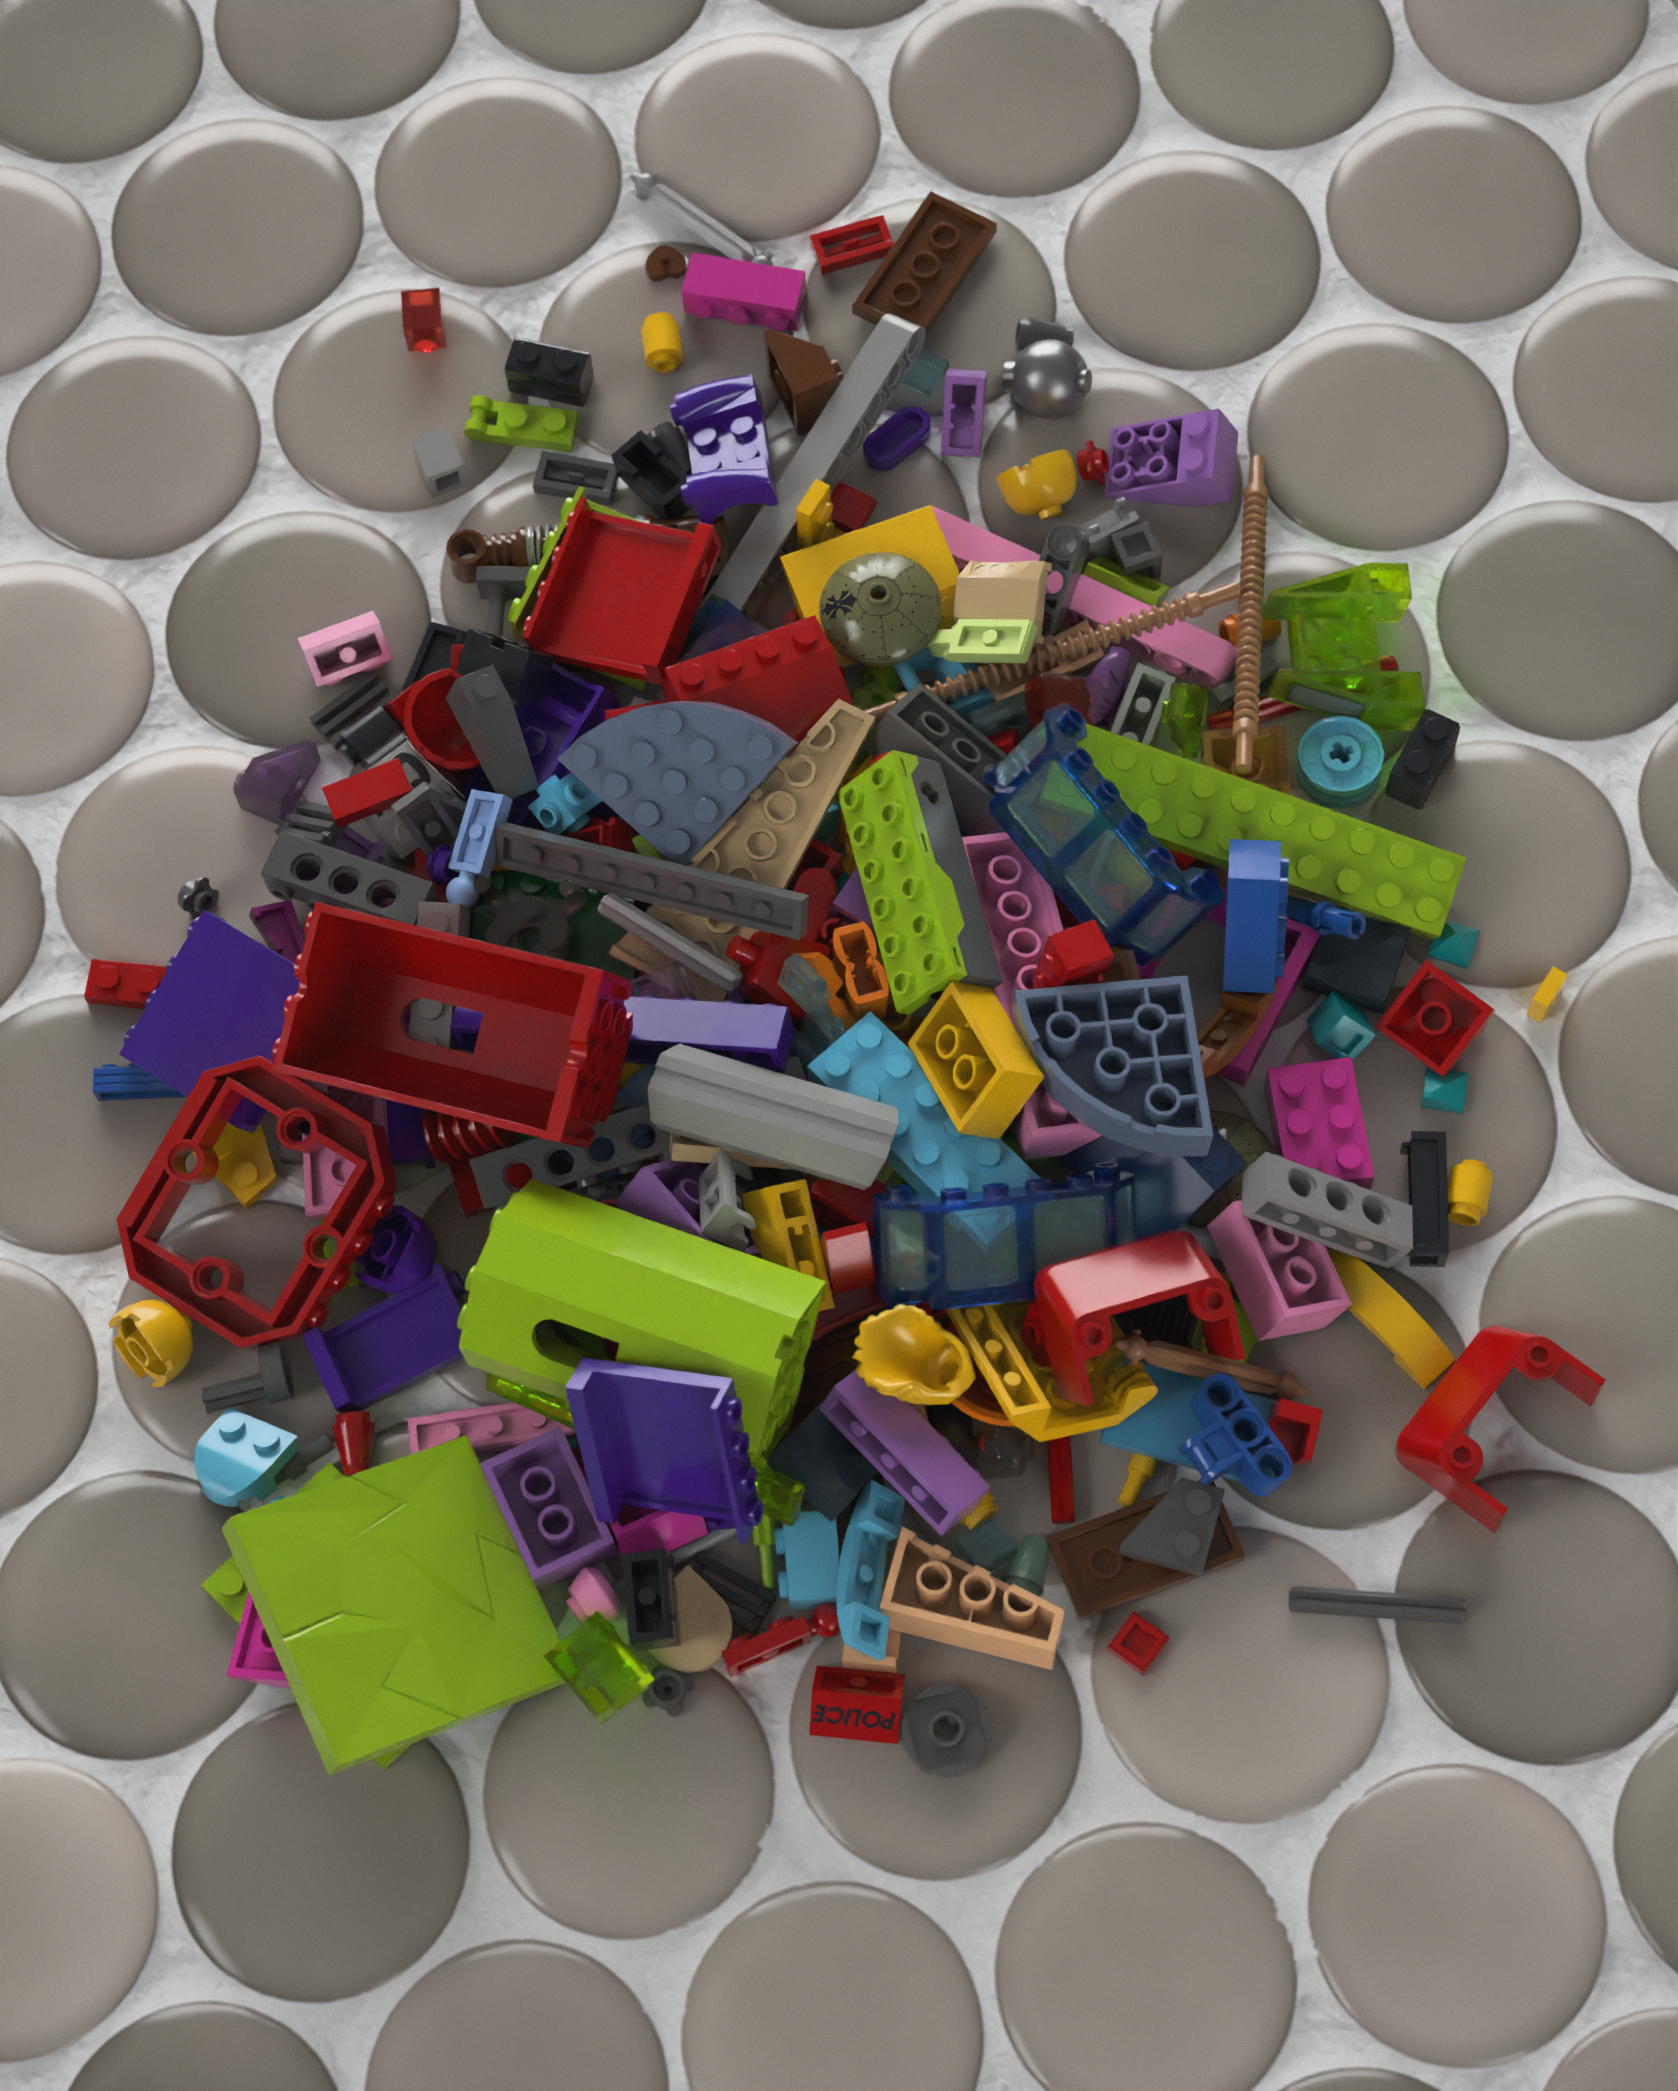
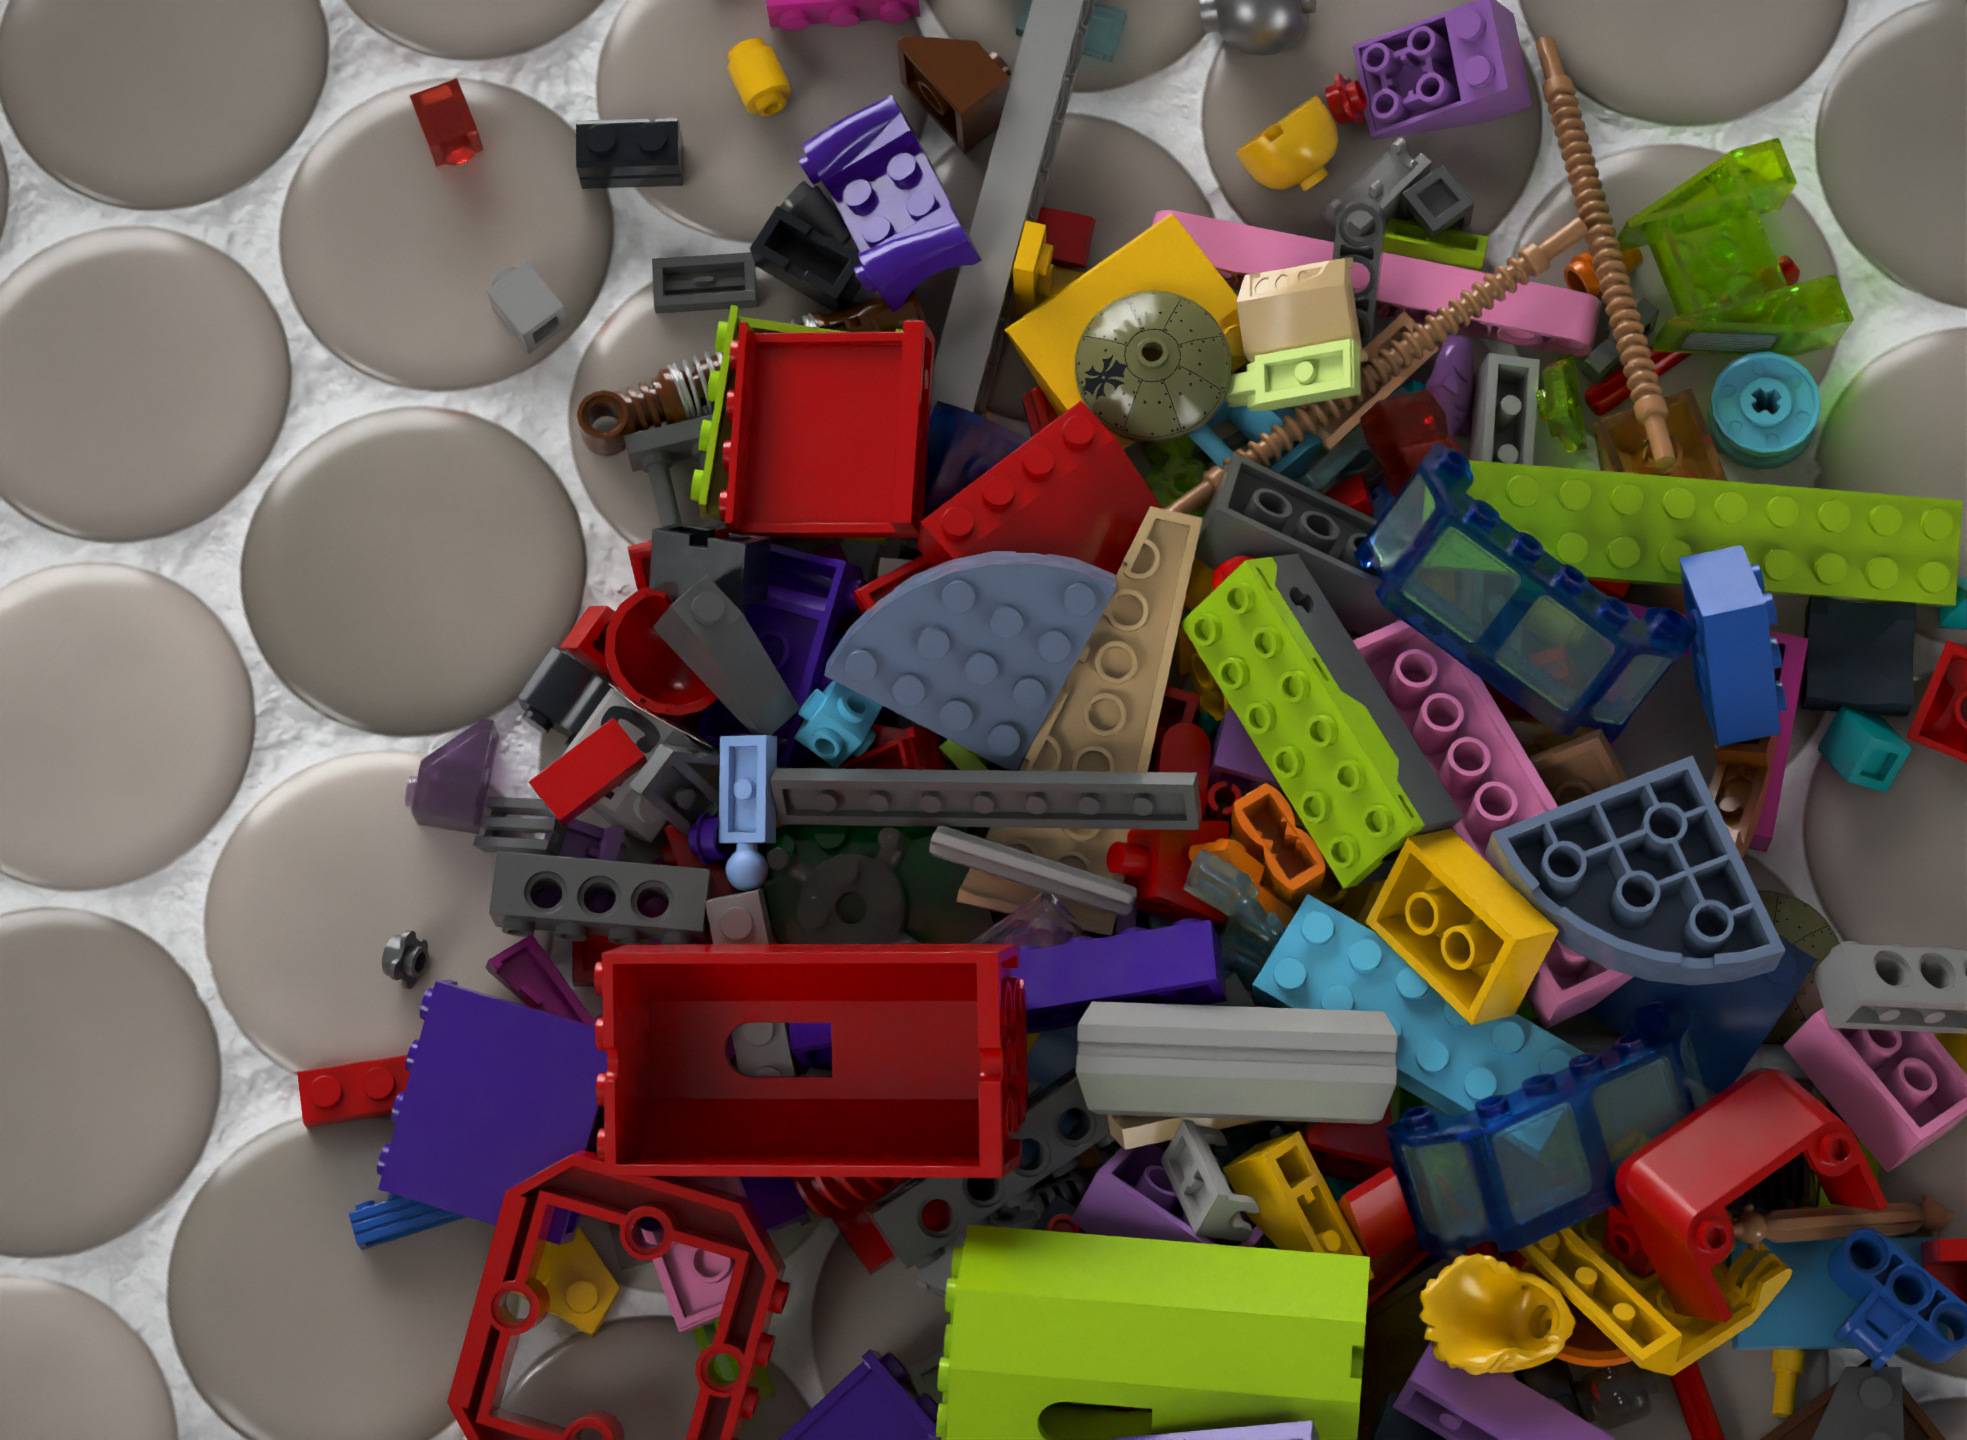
camera: 15 degrees left, 5 degrees up
(345, 649) = (489, 586): bright pink brick -> none
(350, 705) = (546, 624): dark grey tile -> none
(399, 1252) = (811, 1348): dark purple cylinder -> none
(434, 651) = (603, 564): black tile -> none
(521, 424) = (613, 229): lime plate -> none
(896, 438) = (1091, 127): dark purple tile -> none
(963, 412) = (1167, 74): medium lavender arch -> none
(1073, 957) = (1546, 773): red brick -> none
(1320, 1118) = (1876, 876): dark pink brick -> none
(1325, 917) = (1819, 621): blue pin -> none
(1422, 759) = (1864, 381): black brick -> none

